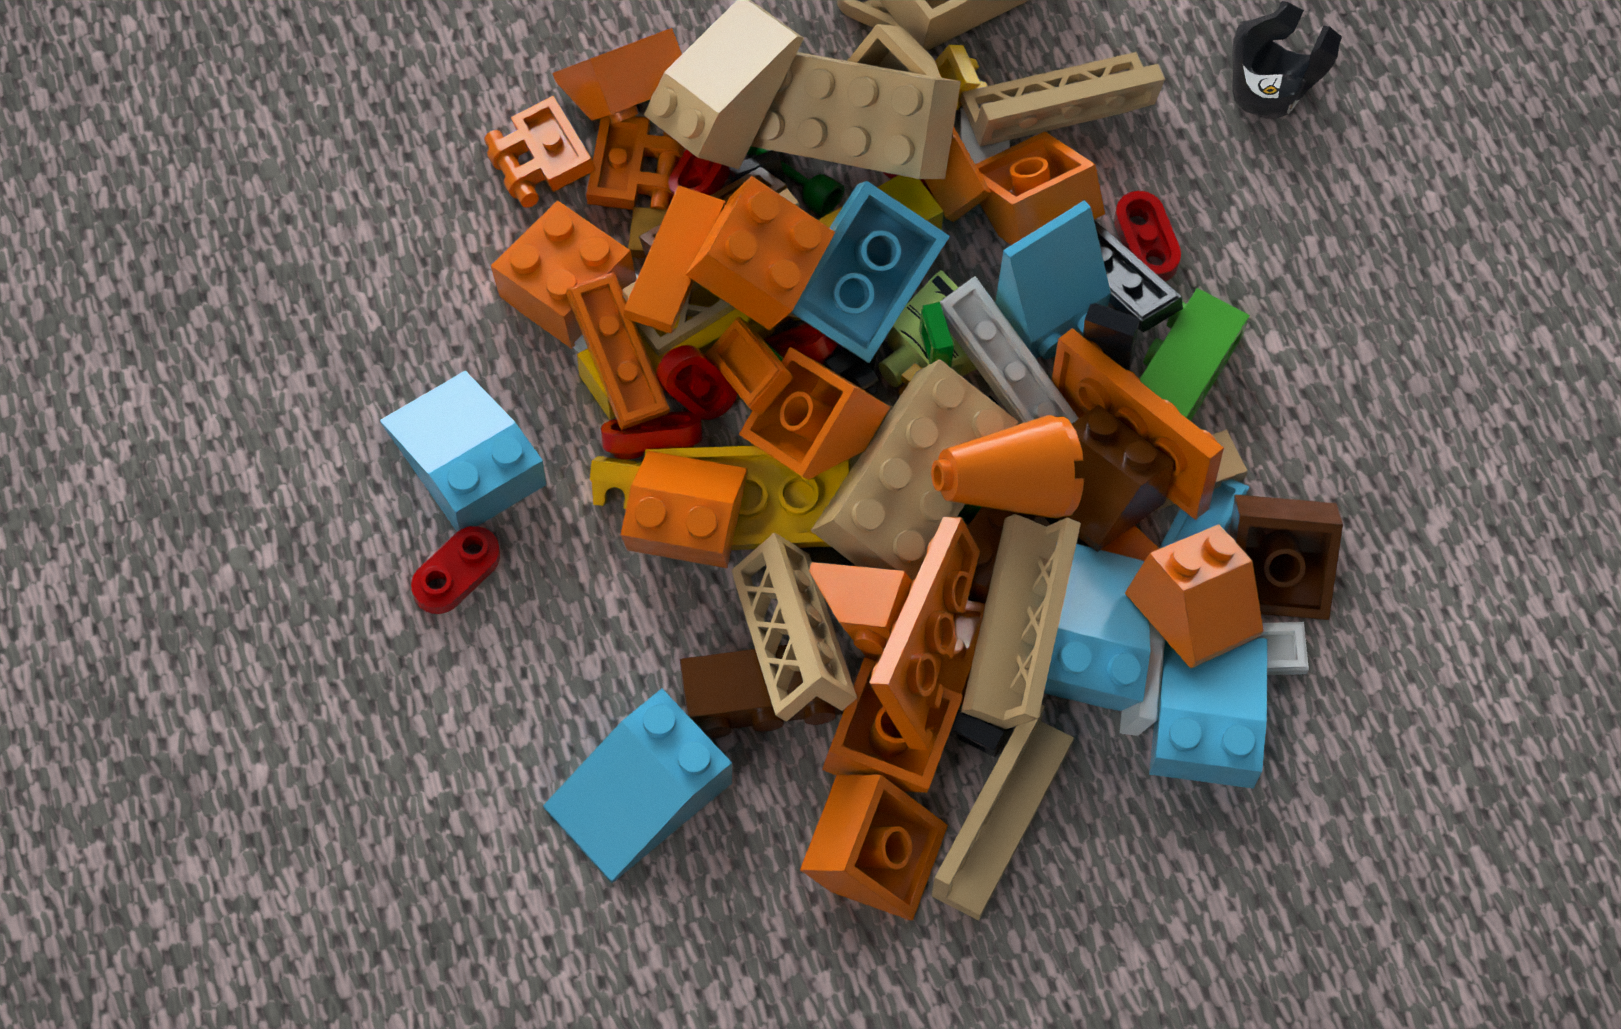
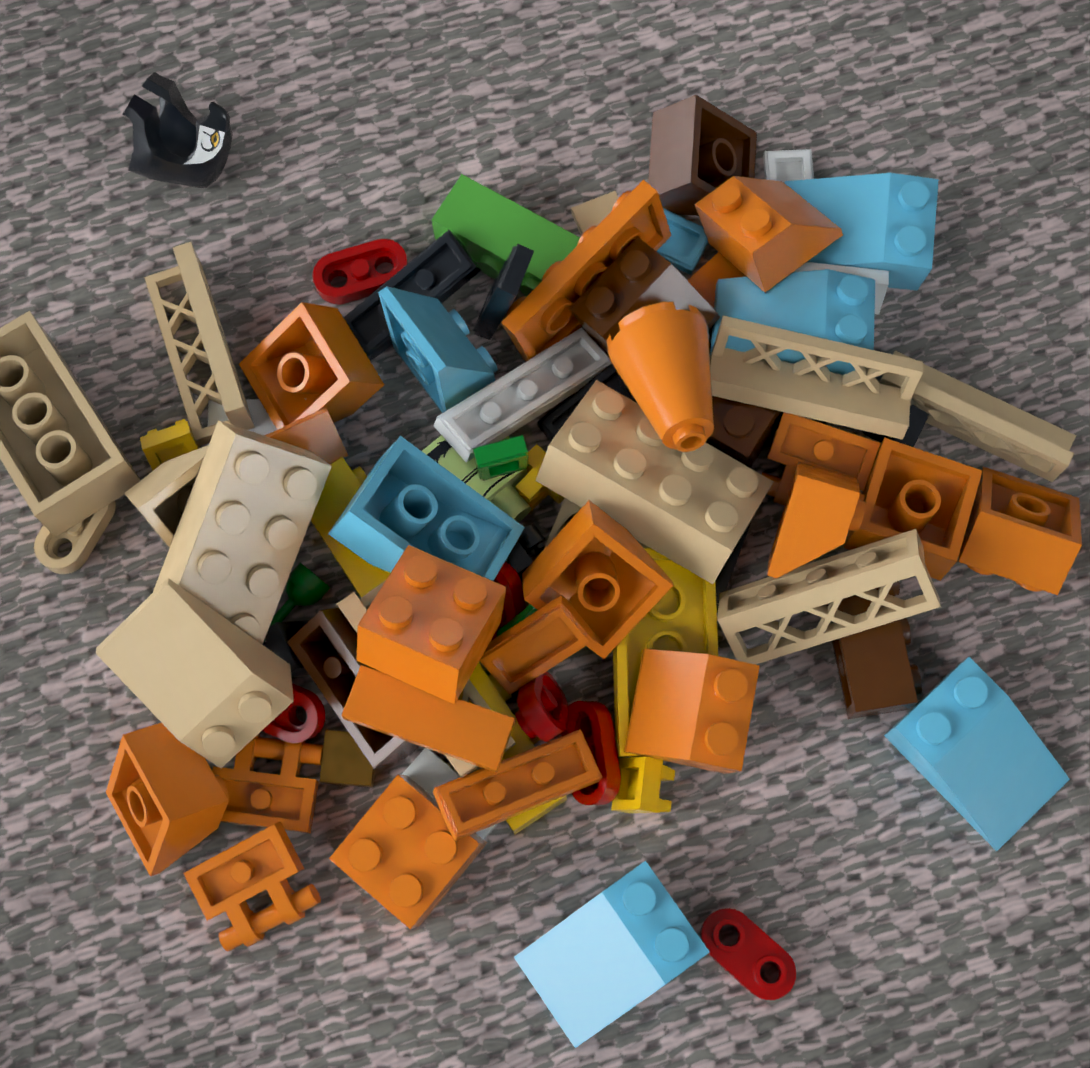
camera: 85 degrees left, 10 degrees up
(926, 632) = (888, 471): orange wing -> none

